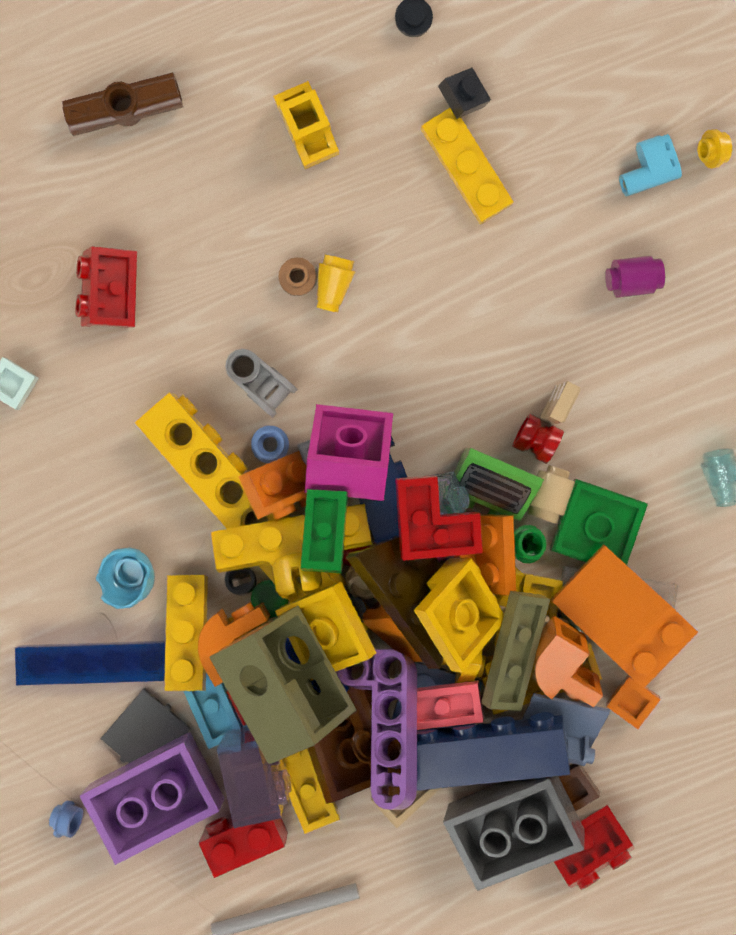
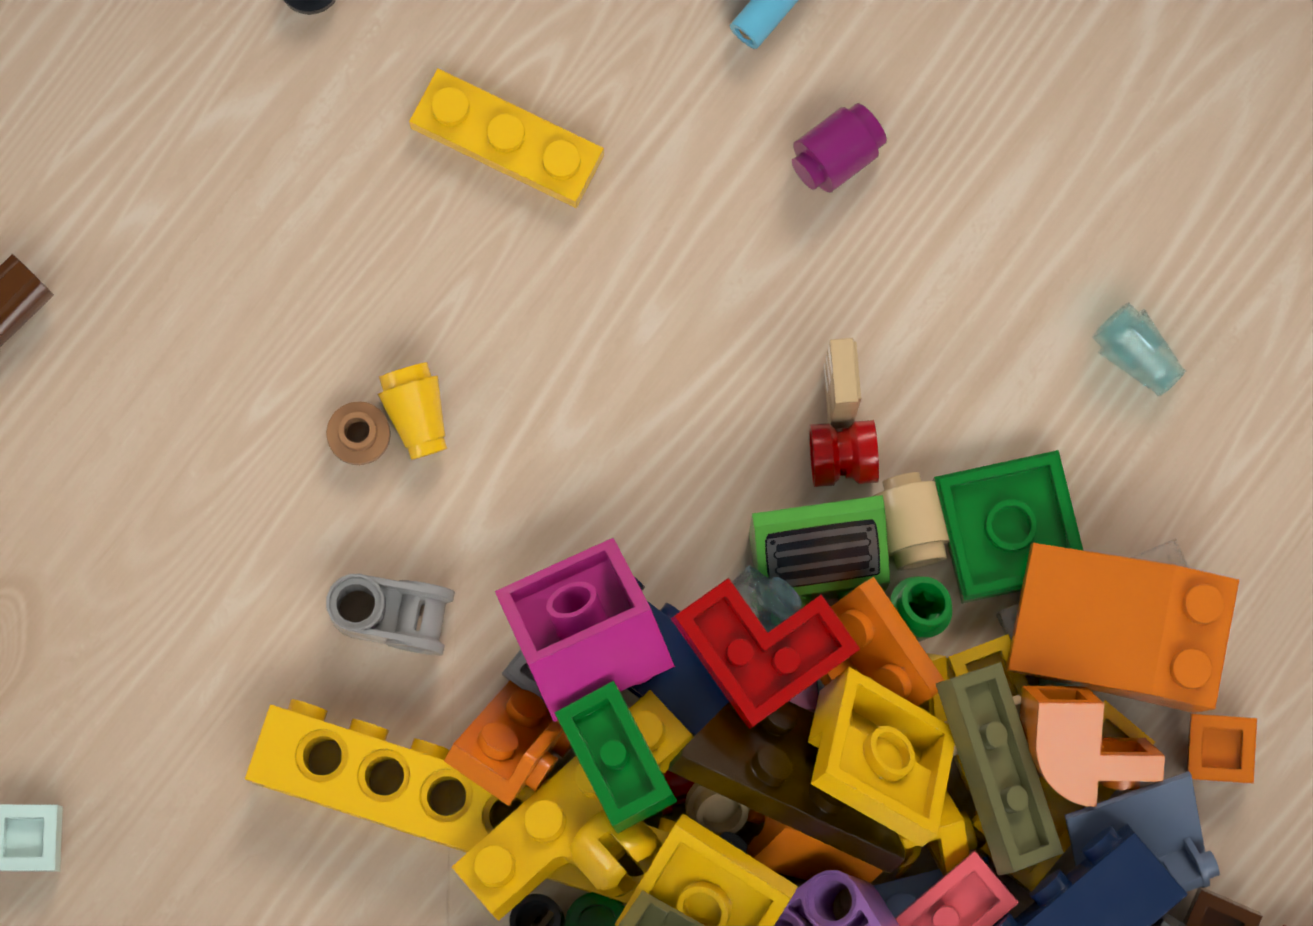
camera: 30 degrees left, 10 degrees down
(107, 287) = (89, 613): red bracket -> none
(261, 435) = (447, 682): medium blue plate -> none
(307, 124) = (246, 214): yellow brick -> none
(464, 93) = (443, 42): black plate -> none

